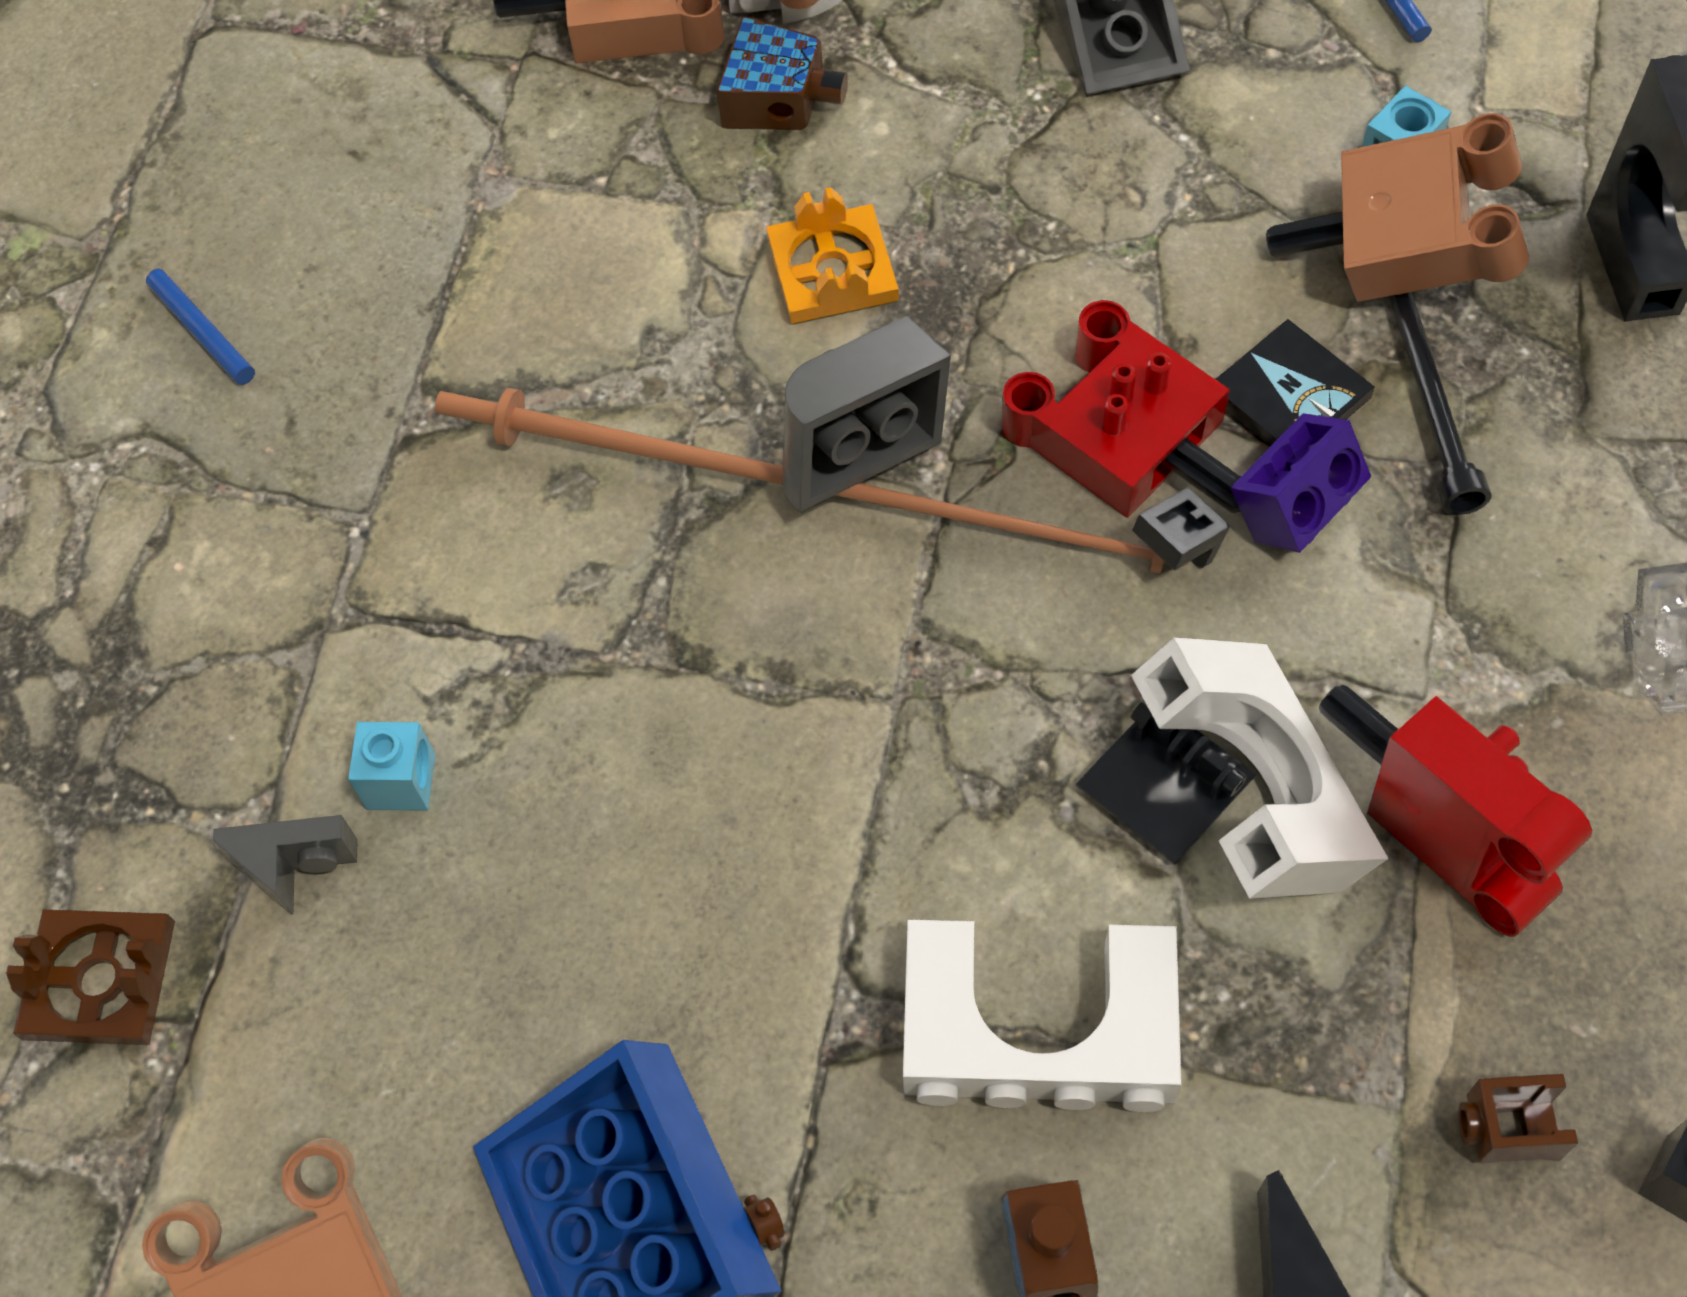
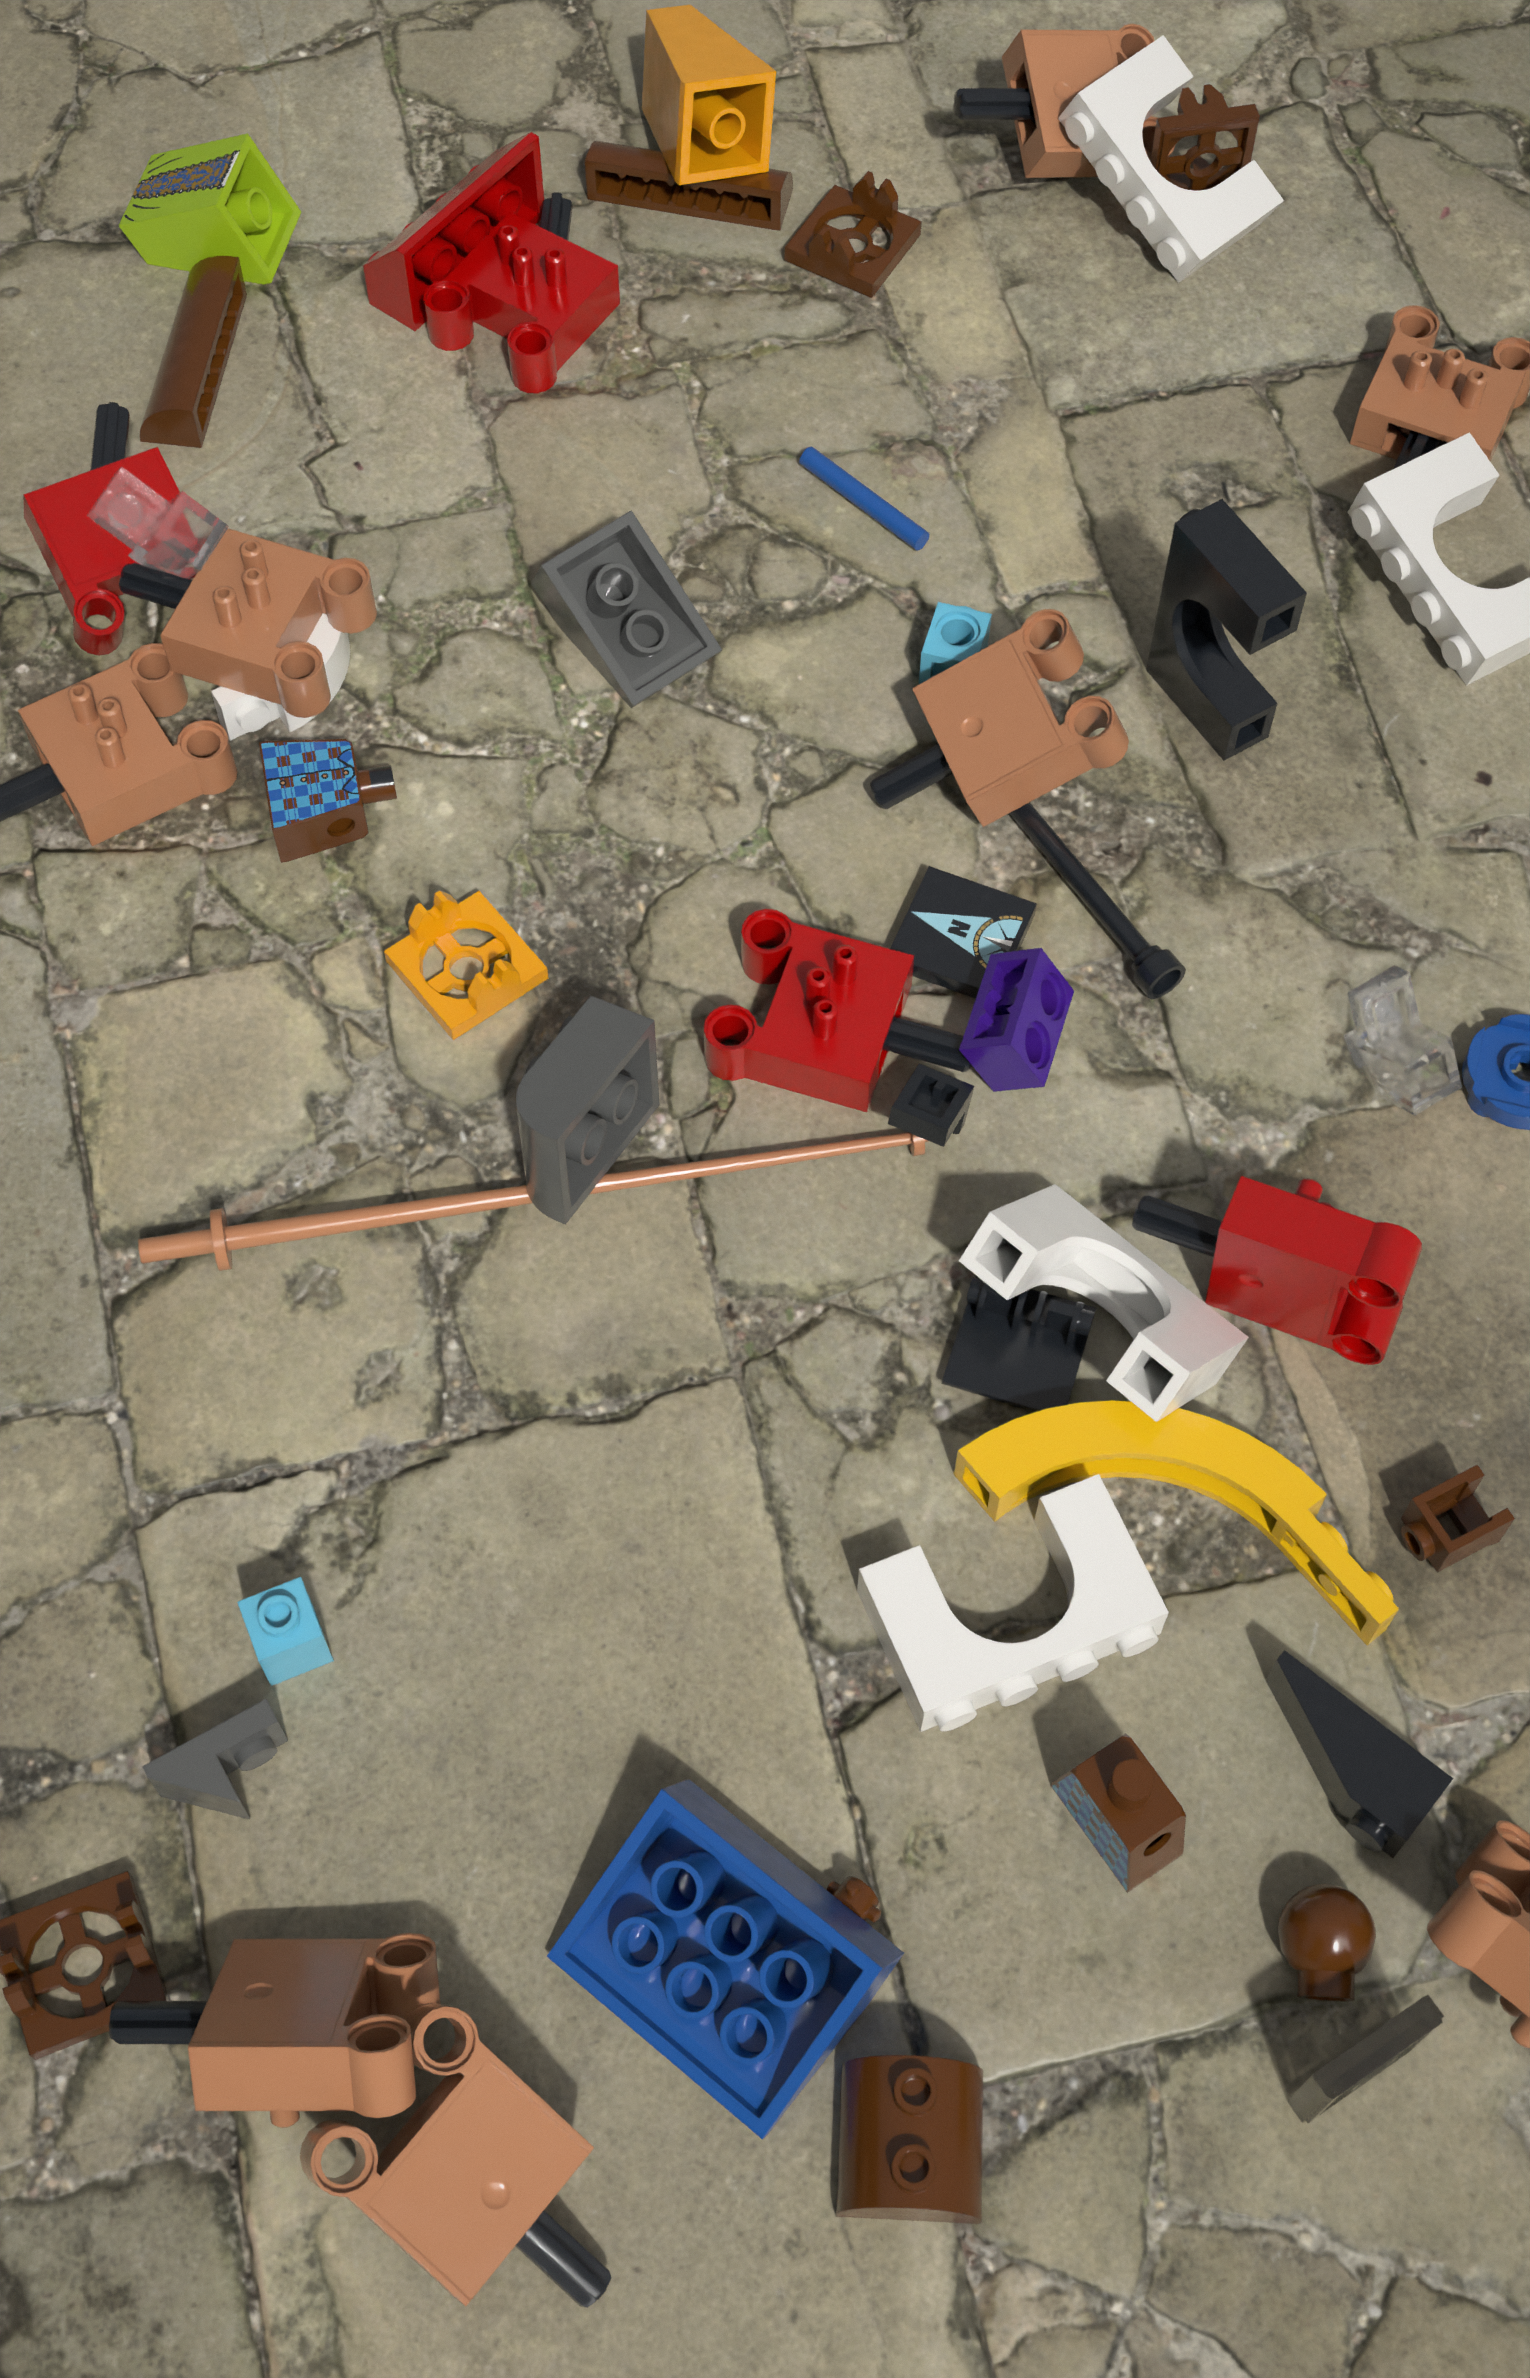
camera: 30 degrees left, 0 degrees up
(217, 1108) = (299, 2026): none -> nougat piece
(1206, 900) = (1190, 1452): none -> yellow arch

